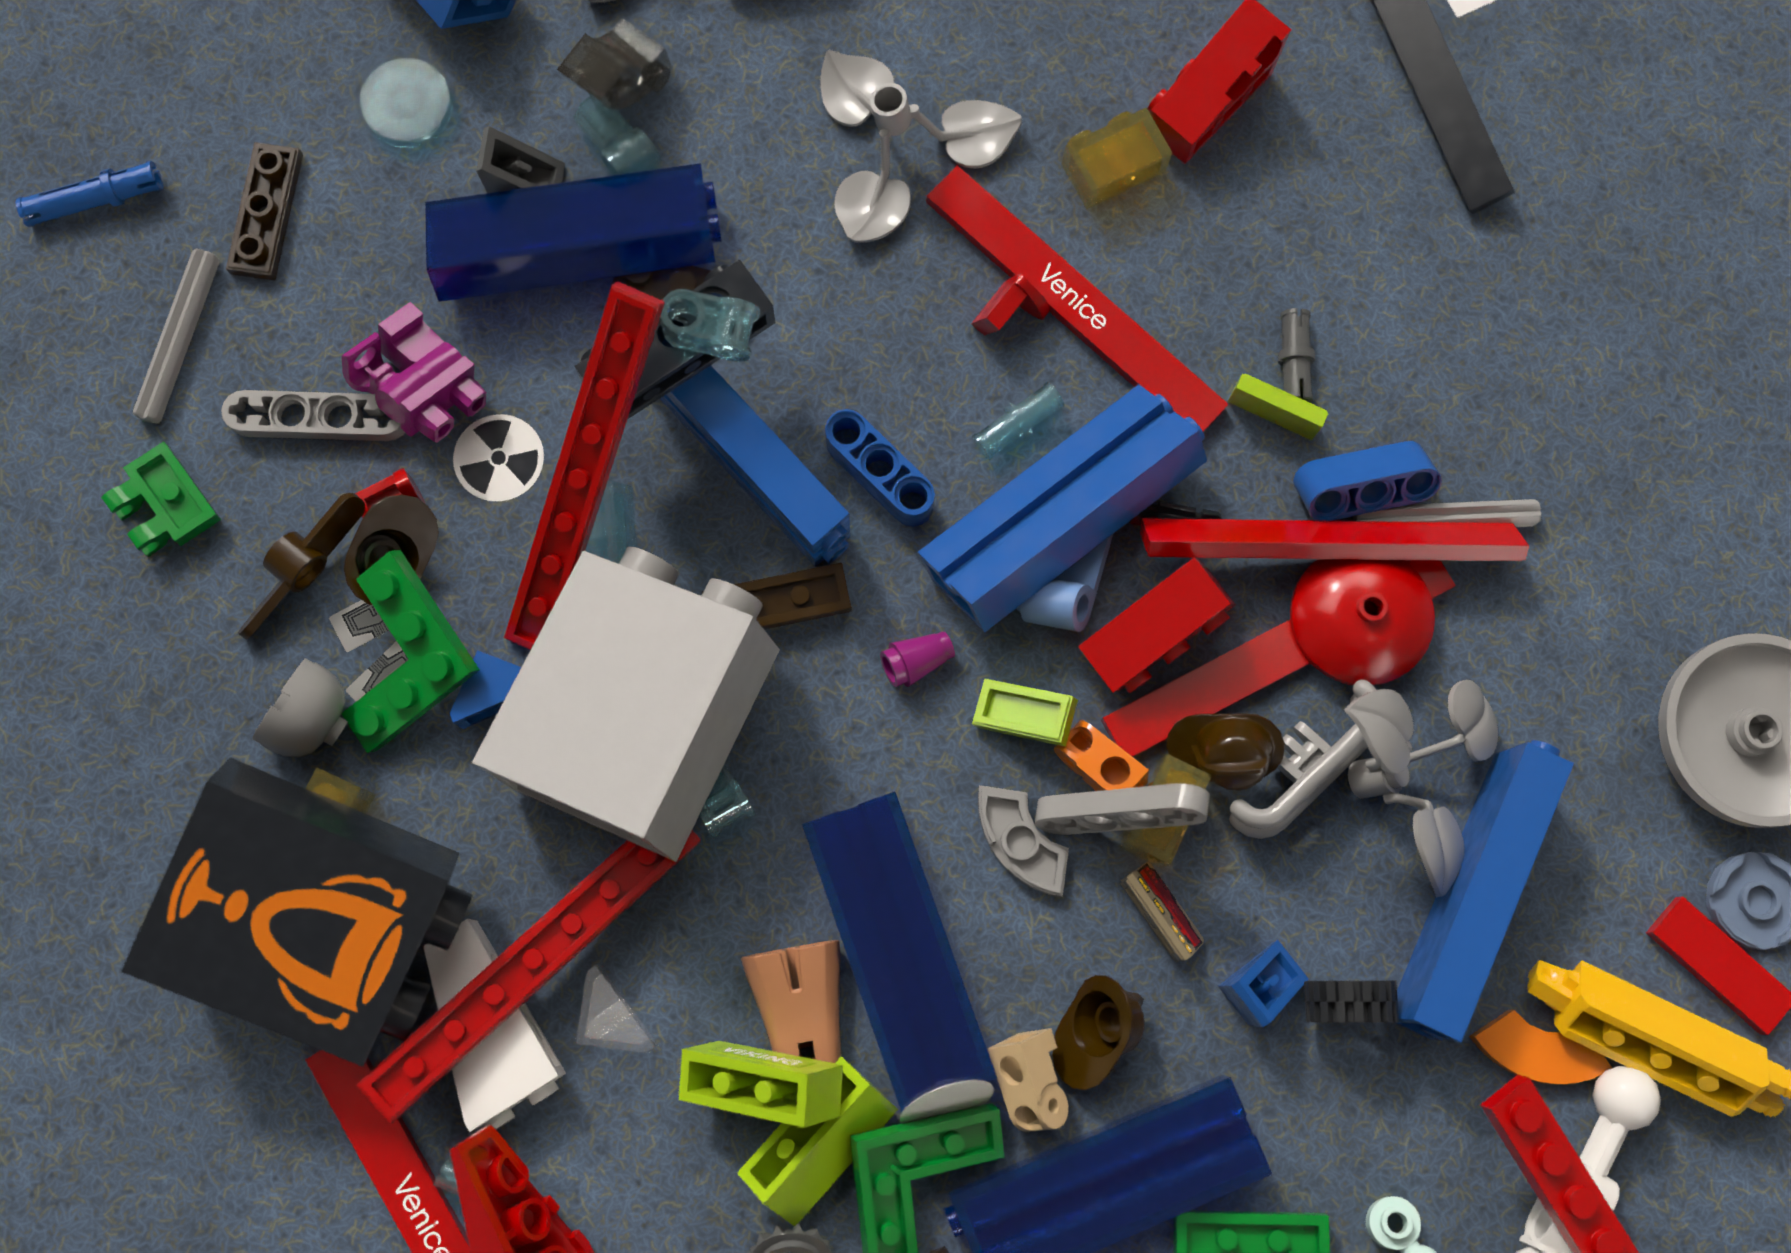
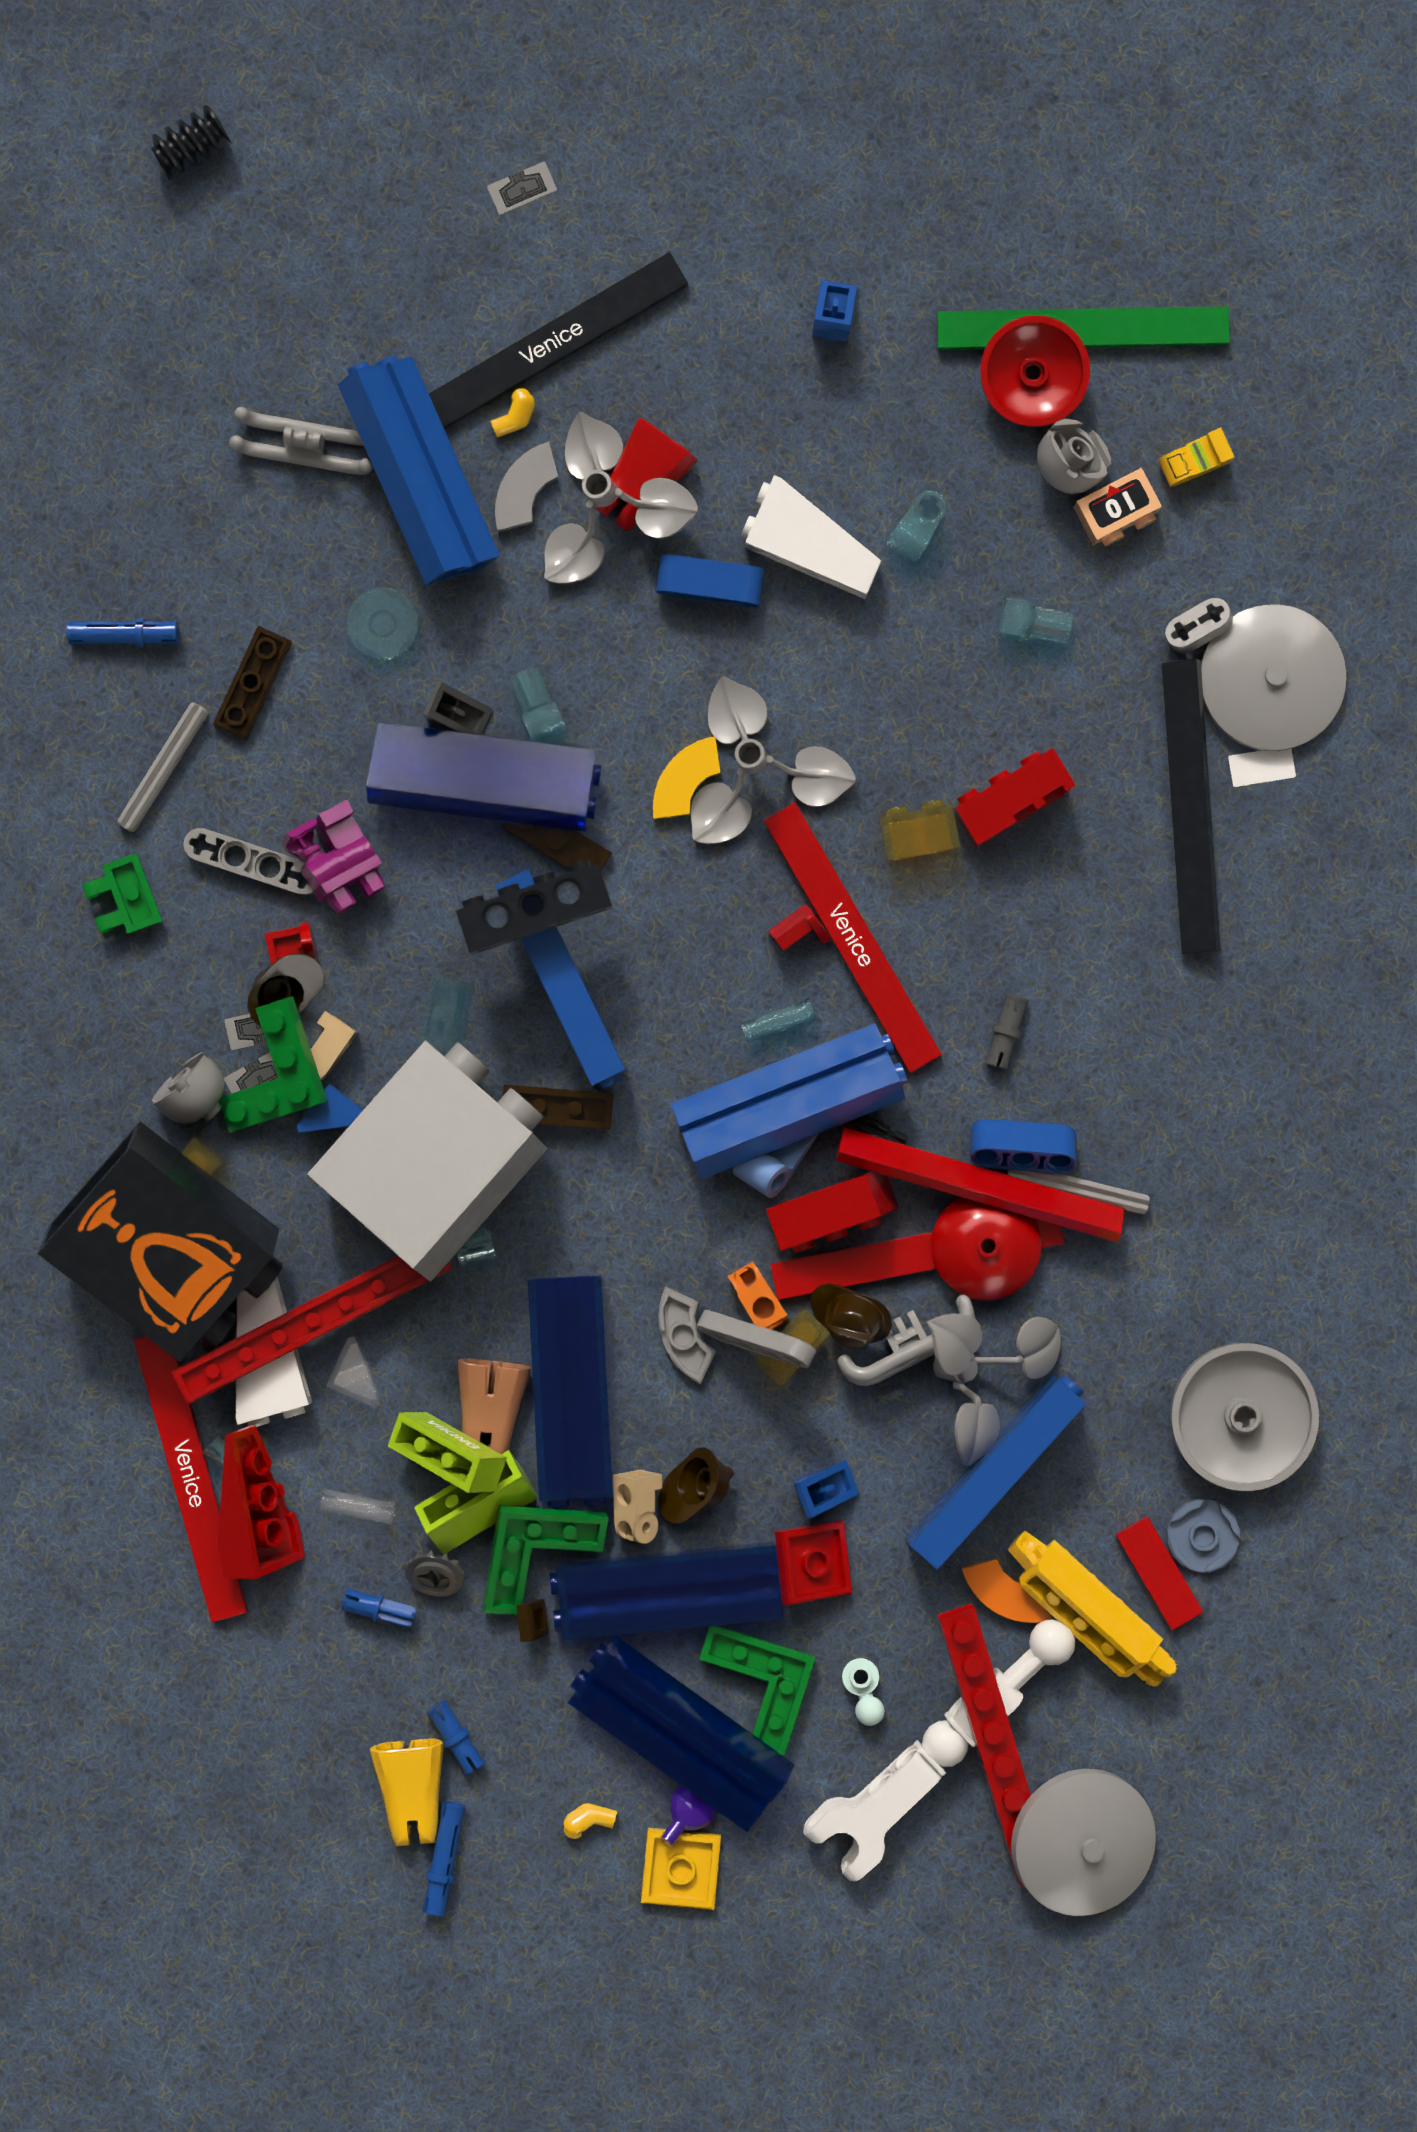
camera: 25 degrees right, 10 degrees up
(301, 560) = (215, 973): dark brown piece -> none
(470, 603) = (331, 1043): none -> tan leg
(498, 457) = (380, 932): white sticker -> none
(586, 456) = (441, 984): red tile -> none
(617, 66) = (552, 653): clear smoke brick -> none
(662, 1196) = (358, 1506): none -> clear pin
(712, 326) = (563, 914): clear light blue piece -> none
(815, 175) = (683, 776): none -> yellow tile
(873, 447) = (656, 1011): blue beam -> none
(915, 657) = (647, 1179): magenta cone -> none
(948, 1099) = (574, 1501): white sticker -> none
(1025, 712) = (713, 1244): lime tile -> none
(1162, 912) = (770, 1415): slope -> none
(1278, 406) = (977, 1068): lime tile -> none
(1283, 1087) = (813, 1562): none -> red plate
(1351, 1001) = (878, 1519): black tyre -> none

